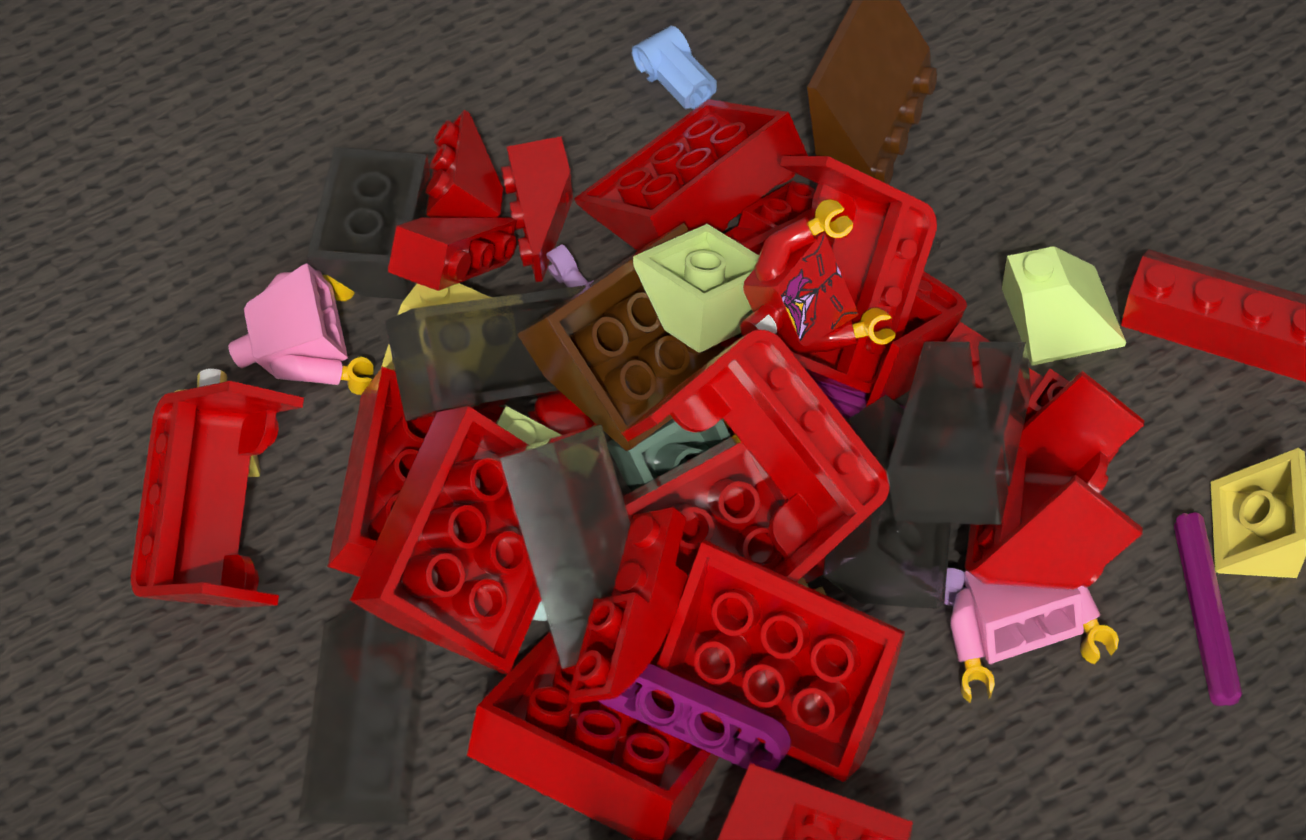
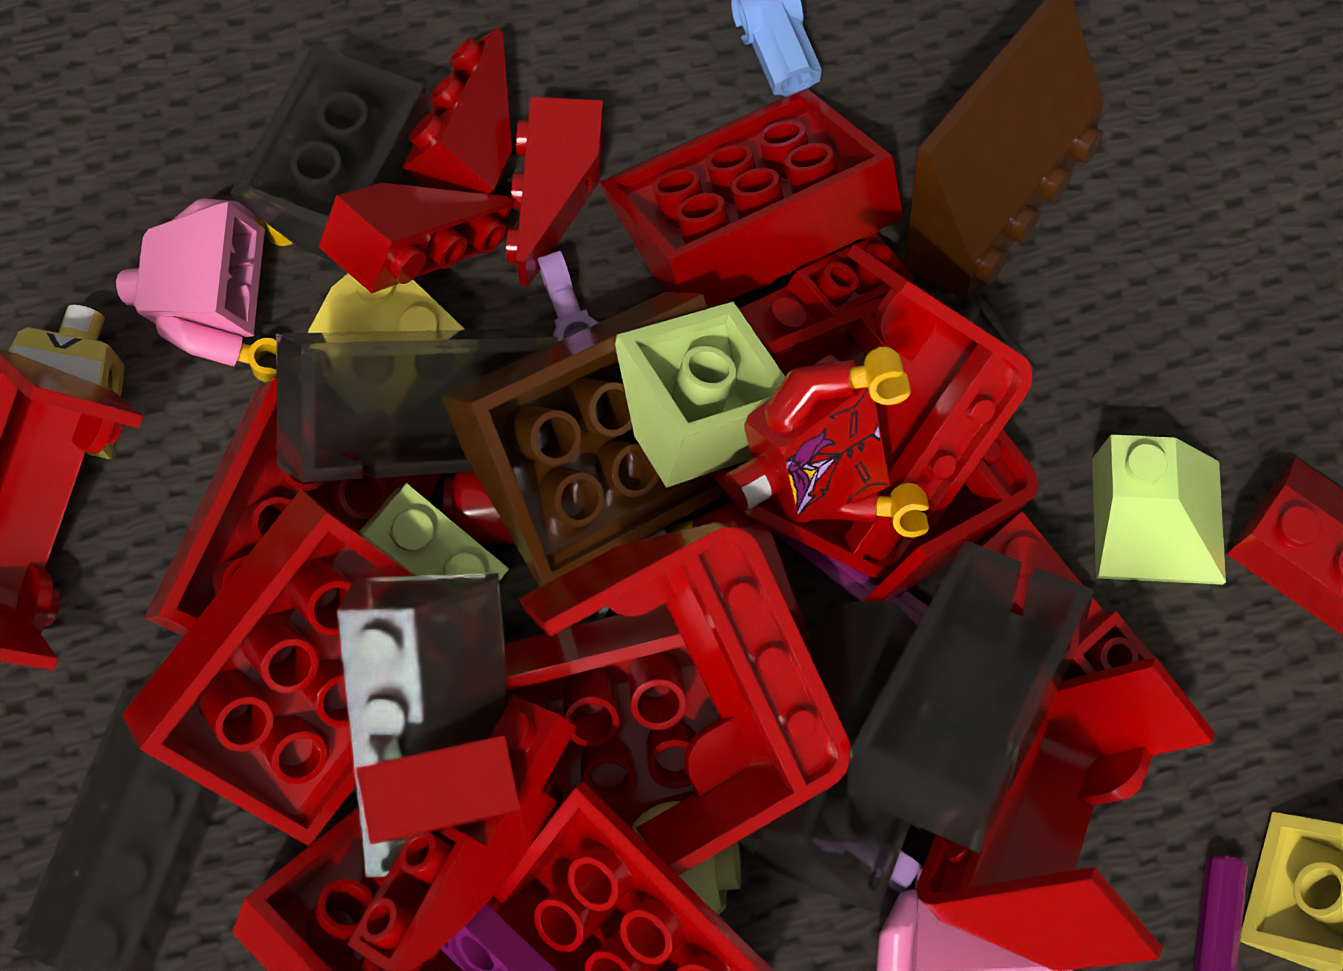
camera: 10 degrees right, 15 degrees up
(603, 568) = (437, 790): none -> red tile

